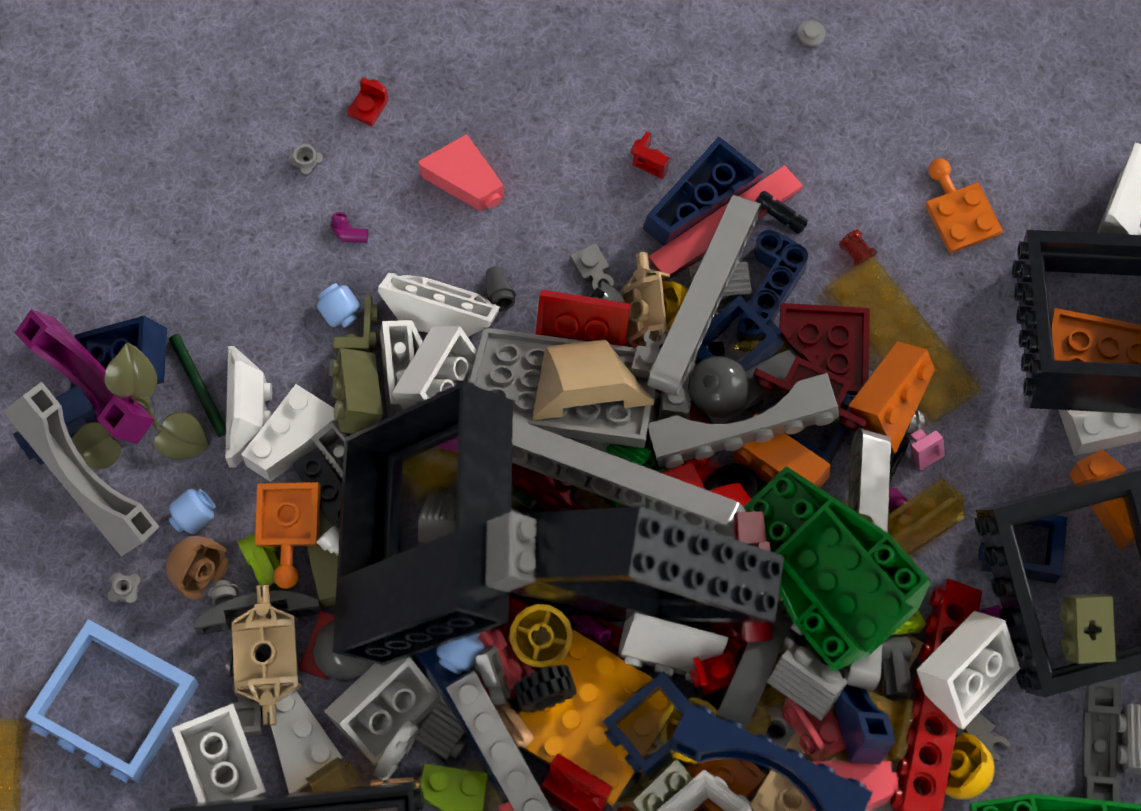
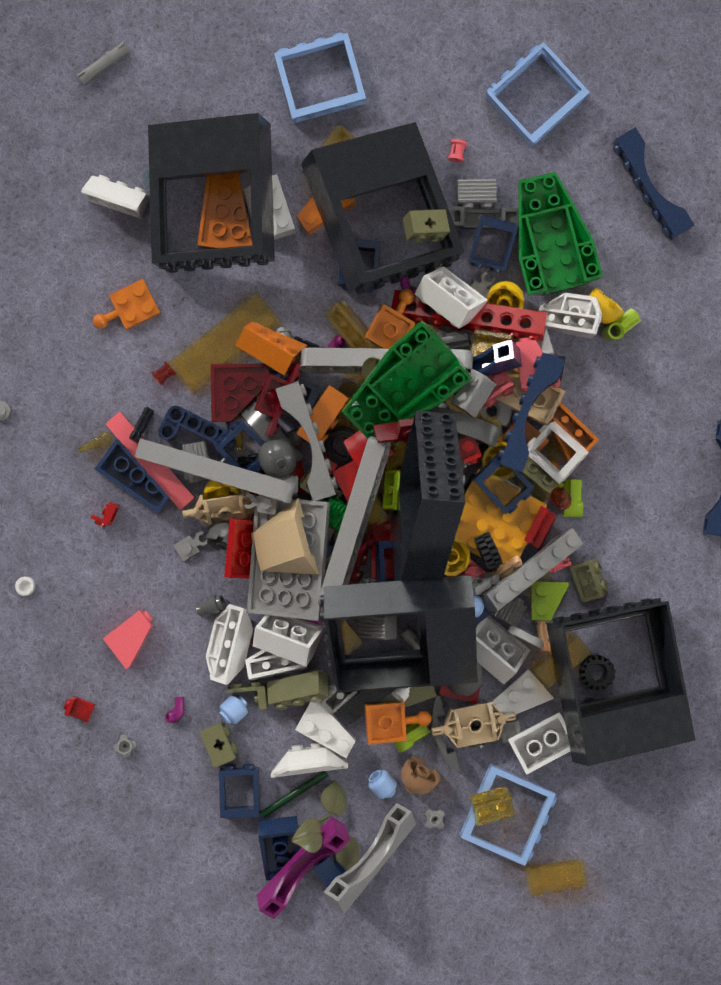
camera: 90 degrees left, 20 degrees up
(129, 668) = (492, 805): none -> clear yellow bracket
(222, 589) = (433, 756): light grey plate -> none
(237, 329) = (239, 811): none -> dark blue window
(275, 276) = (217, 754): none -> olive brick
(510, 551) = (432, 577): light grey brick -> none
(554, 47) = (25, 586): none -> white tile
(759, 155) = (103, 439): none -> clear yellow bar
(926, 448) = (301, 325): bright pink tile -> none
(938, 568) = (389, 324): none -> orange plate
(1092, 761) = (499, 224): none -> dark blue window

